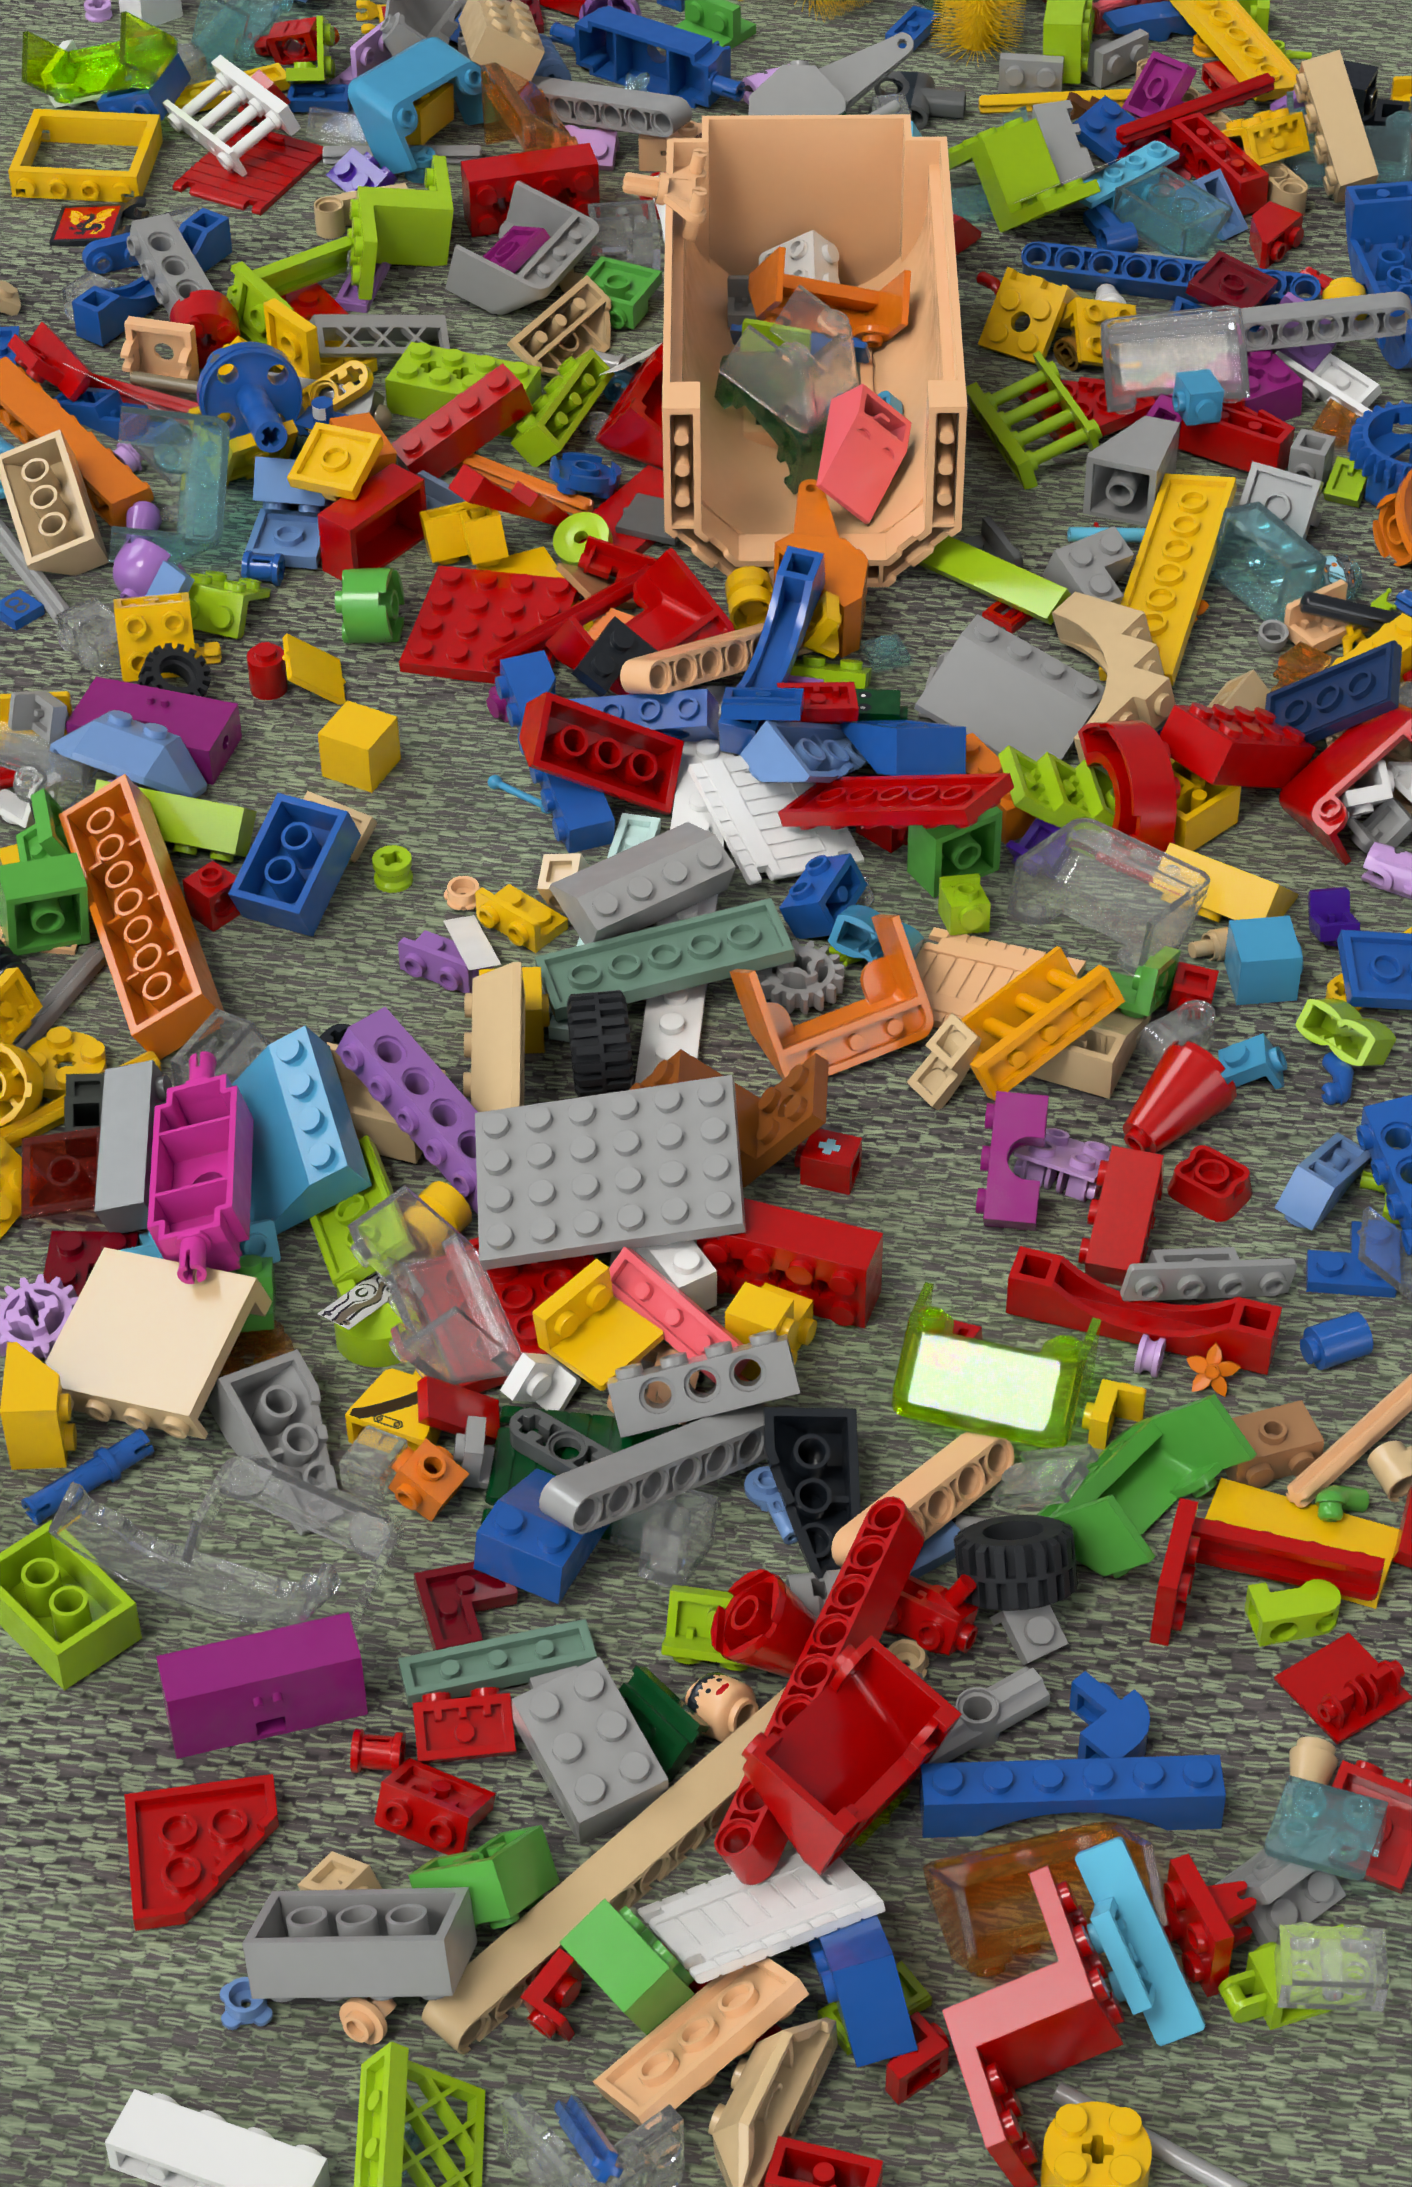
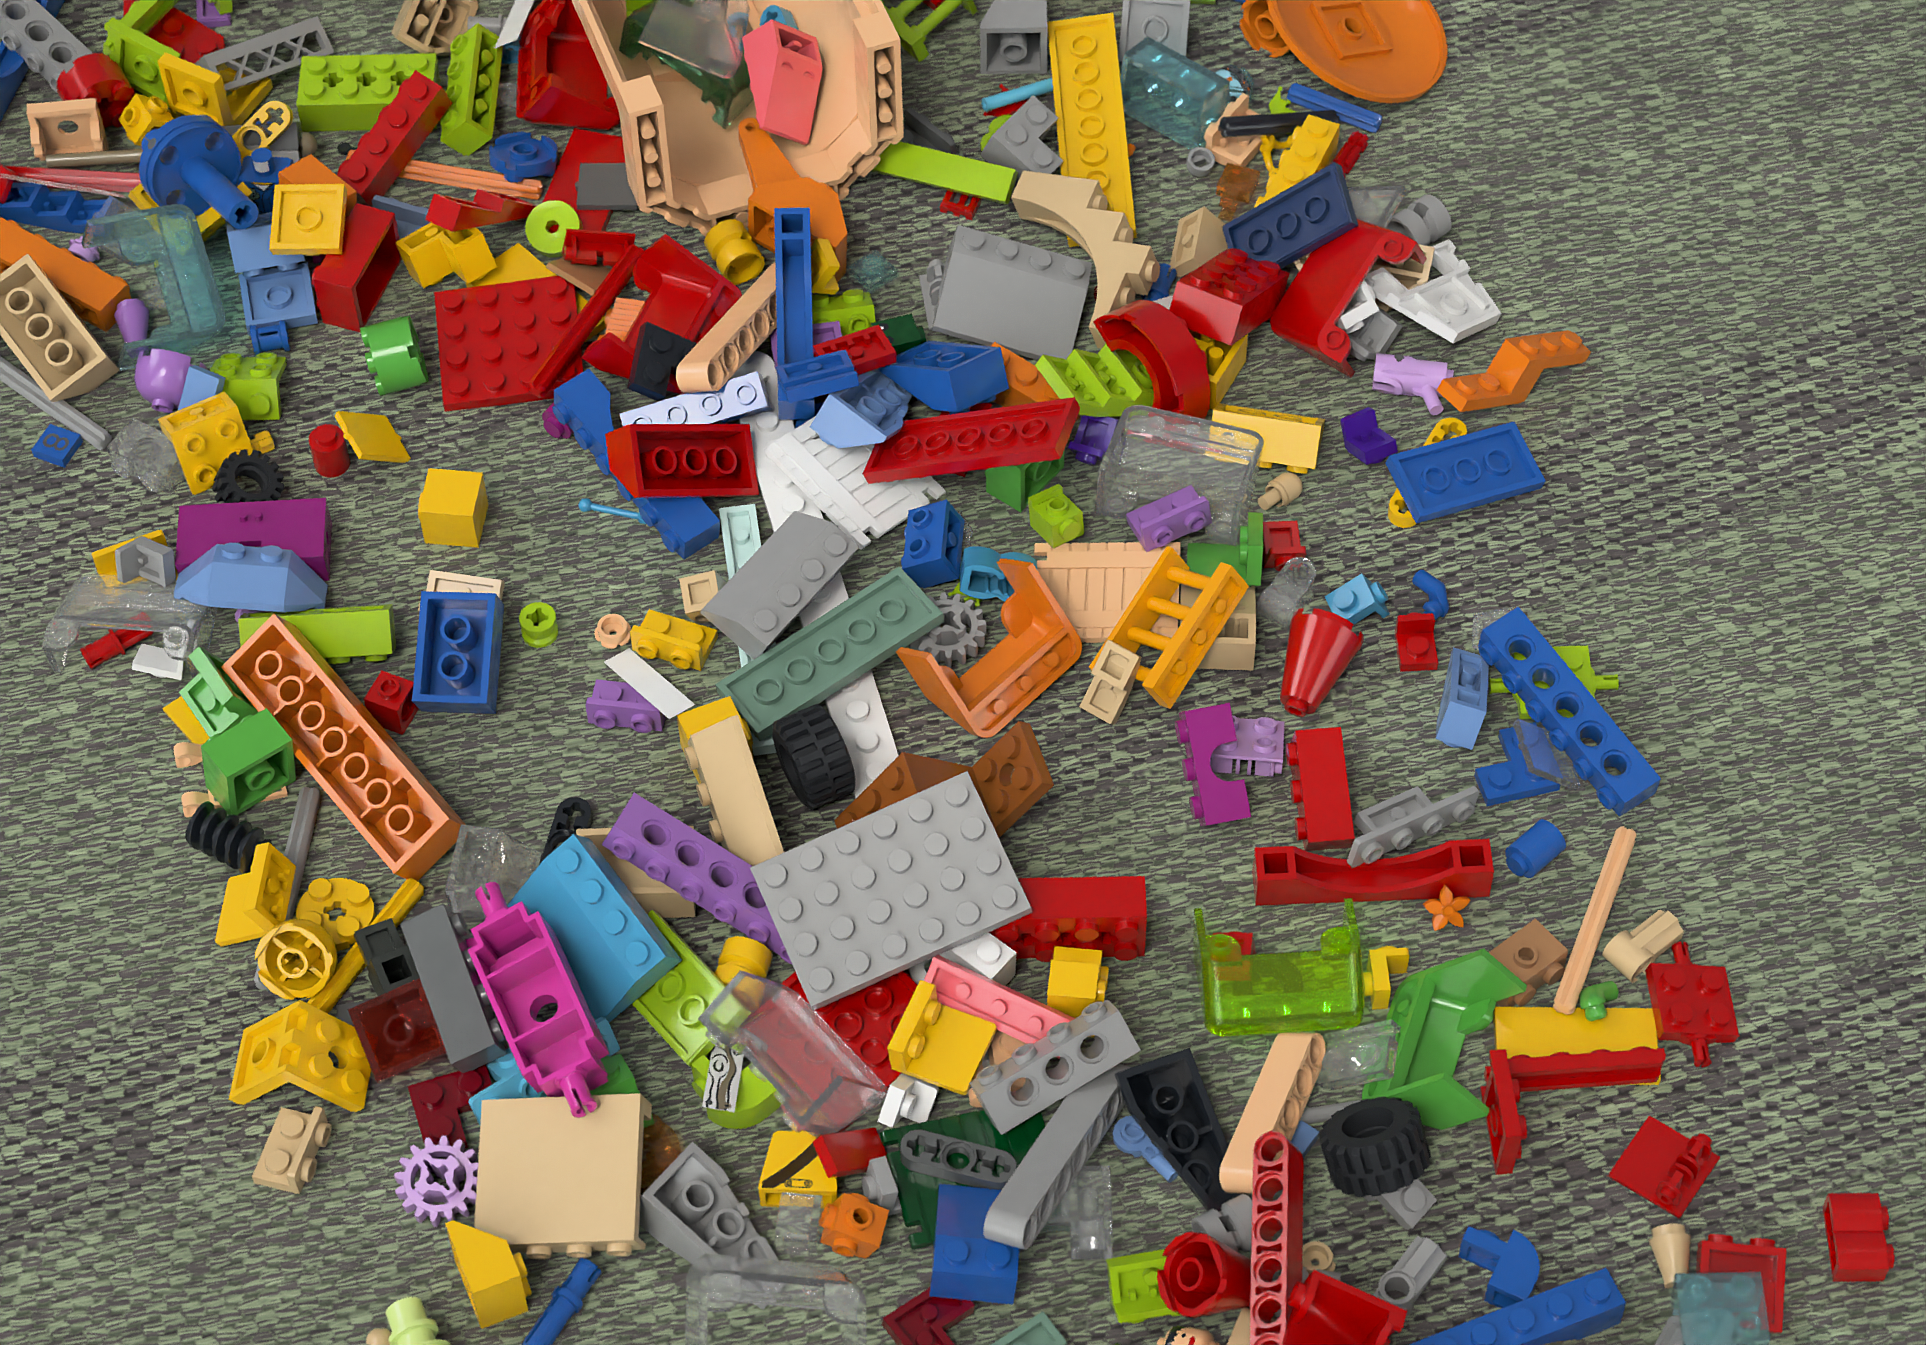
camera: 20 degrees left, 10 degrees up
(829, 1161) = (1054, 810): red brick -> none
(936, 1615) = (1330, 1213): red brick -> none
(1083, 933) = (1169, 518): none -> medium lavender bracket
(1150, 1355) = (1391, 910): lavender bush -> none
(1211, 1184) = (1373, 729): red piece -> none
(1263, 960) = (1330, 499): dark azure head -> none
(1292, 1612) = (1599, 1114): lime leg -> none
(1298, 1115) = (1416, 642): none -> red bracket
(1345, 1031) = (1417, 546): lime brick -> none

